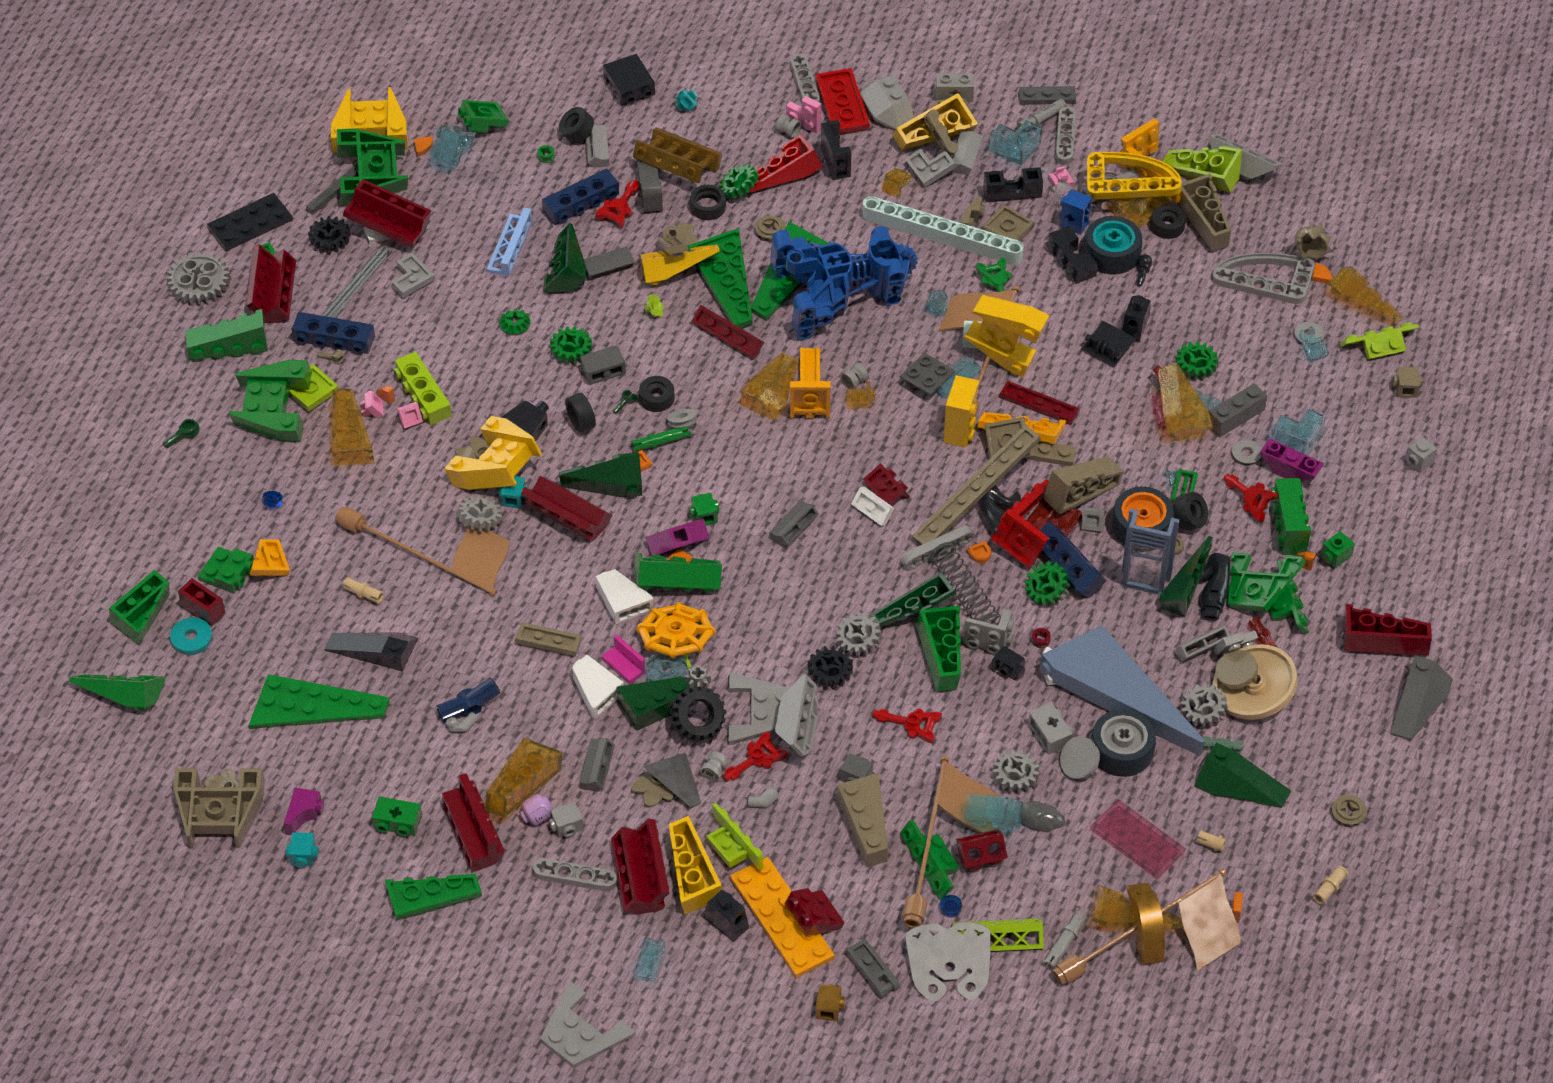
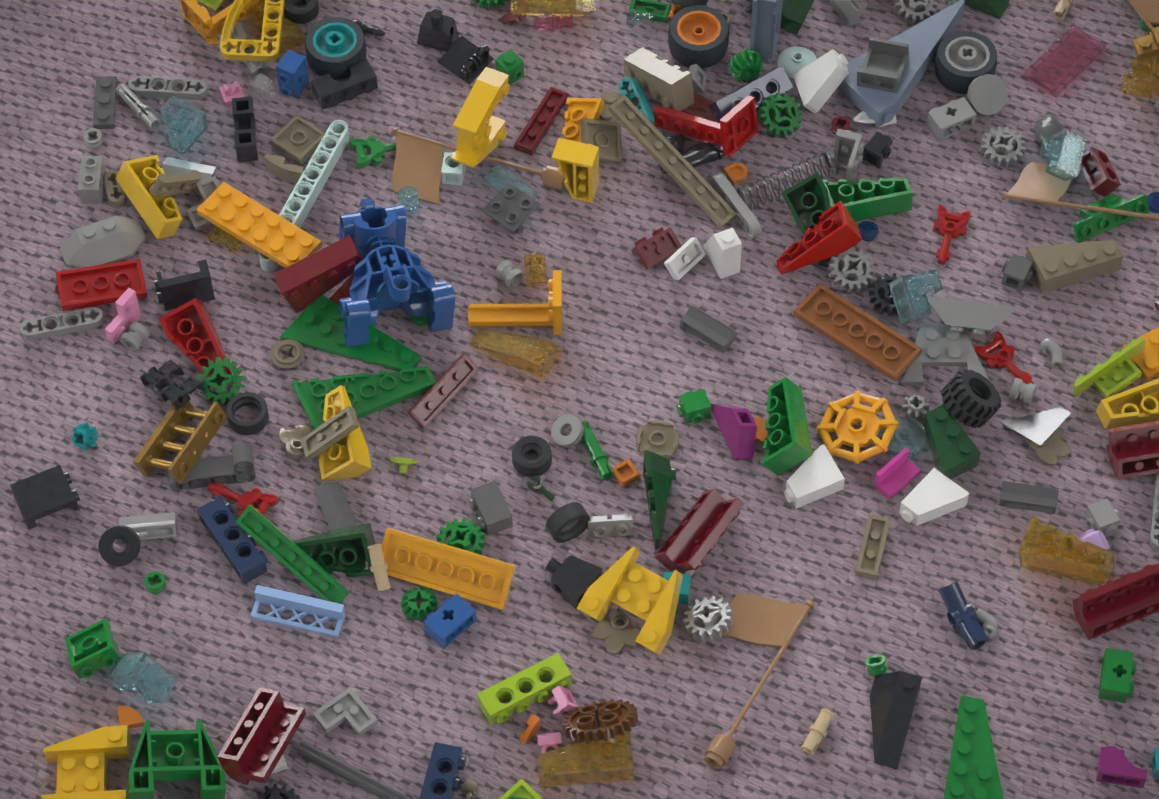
camera: 90 degrees left, 5 degrees up
(379, 429) = (600, 721): none -> reddish brown gear
(425, 635) = (876, 664): none -> green bush
(492, 338) = (449, 621): none -> blue brick
(540, 332) = (447, 568): none -> light orange plate
(544, 287) = (379, 567): none -> tan pin
(557, 231) = (291, 556): none -> green tile
(582, 441) = (617, 526): none -> light grey hinge
(678, 488) = (650, 438): none -> dark tan tile
(730, 144) = (162, 379): none -> black piece
(784, 635) = (857, 332): none -> dark orange plate
(820, 668) = (911, 294): none -> clear light blue brick
(838, 226) = (318, 273): none -> dark red wedge
(874, 529) = (724, 252): none -> white slope
(884, 607) = (828, 238): none -> red wedge
(896, 192) = (258, 226): none -> light orange plate
(911, 655) = (868, 230): none -> clear blue tile
(1005, 89) = (91, 133): none -> light grey bush
(1040, 476) = (634, 86): none -> teal beam
(1086, 612) = (821, 79): none -> white slope
(1097, 373) = (510, 64): none -> green brick
(1100, 660) = (883, 65): none -> dark grey panel
(1107, 556) = (746, 65): none -> green gear
(1121, 613) = (793, 65): none -> light aqua dish

